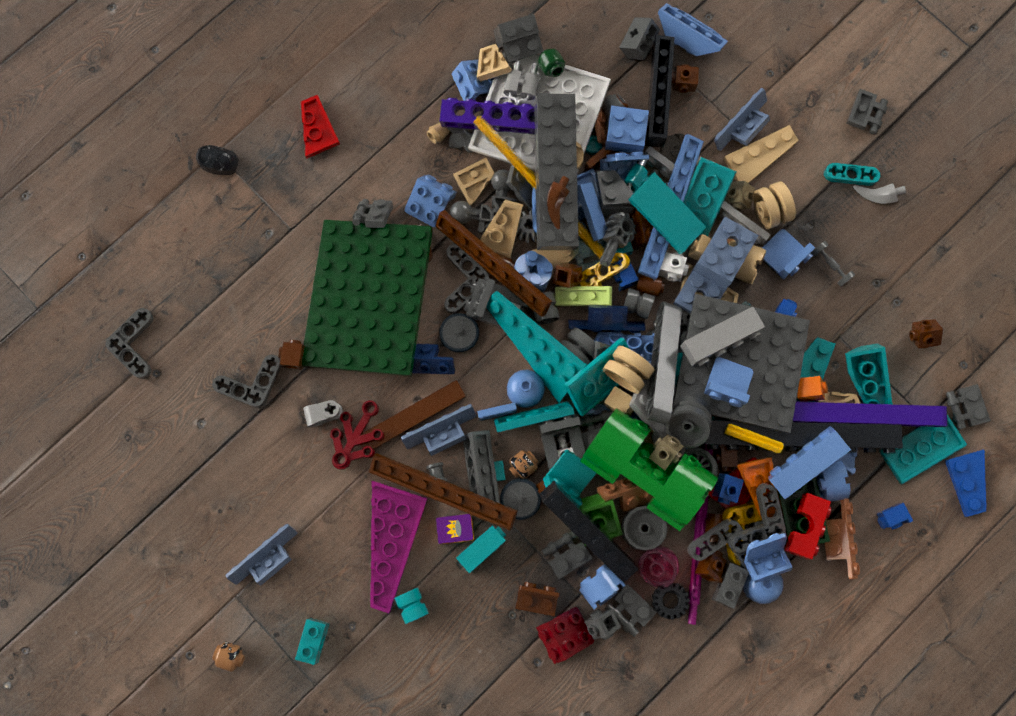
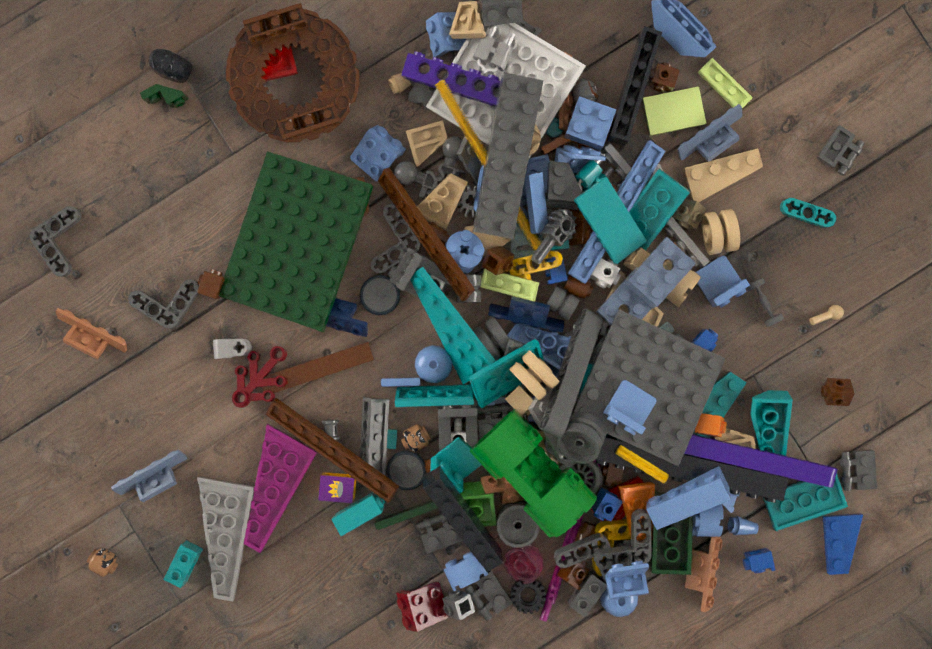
camera: 10 degrees right, 10 degrees up
(178, 430) = (88, 337): none -> nougat bracket
(225, 186) = (173, 97): none -> dark green slope
(327, 99) = (294, 28): none -> reddish brown piece
(347, 589) = (225, 523): none -> light grey wing
(374, 214) = (321, 159): dark grey plate -> none
(411, 605) = (283, 551): teal wheel -> none
(441, 432) = (343, 392): sand blue bracket -> none
(532, 541) = (405, 514): none -> dark green tile
(537, 600) = (402, 567): reddish brown bracket -> none
(551, 62) = (528, 36): dark green head -> none
(555, 198) = (499, 188): reddish brown bar -> none
(639, 38) = (626, 24): dark grey brick -> none
(666, 451) = (553, 463): dark tan brick -> none
(702, 108) = (674, 111): none -> yellowish green tile
(722, 336) = (635, 360): light grey brick -> none
(743, 74) = (724, 84): none -> yellowish green tile
(816, 511) = (666, 573): red arch -> none
(867, 486) = (741, 526): none -> medium blue cone
(881, 195) = (832, 241): light grey bar -> none
(902, 261) = (834, 312): none -> tan bar

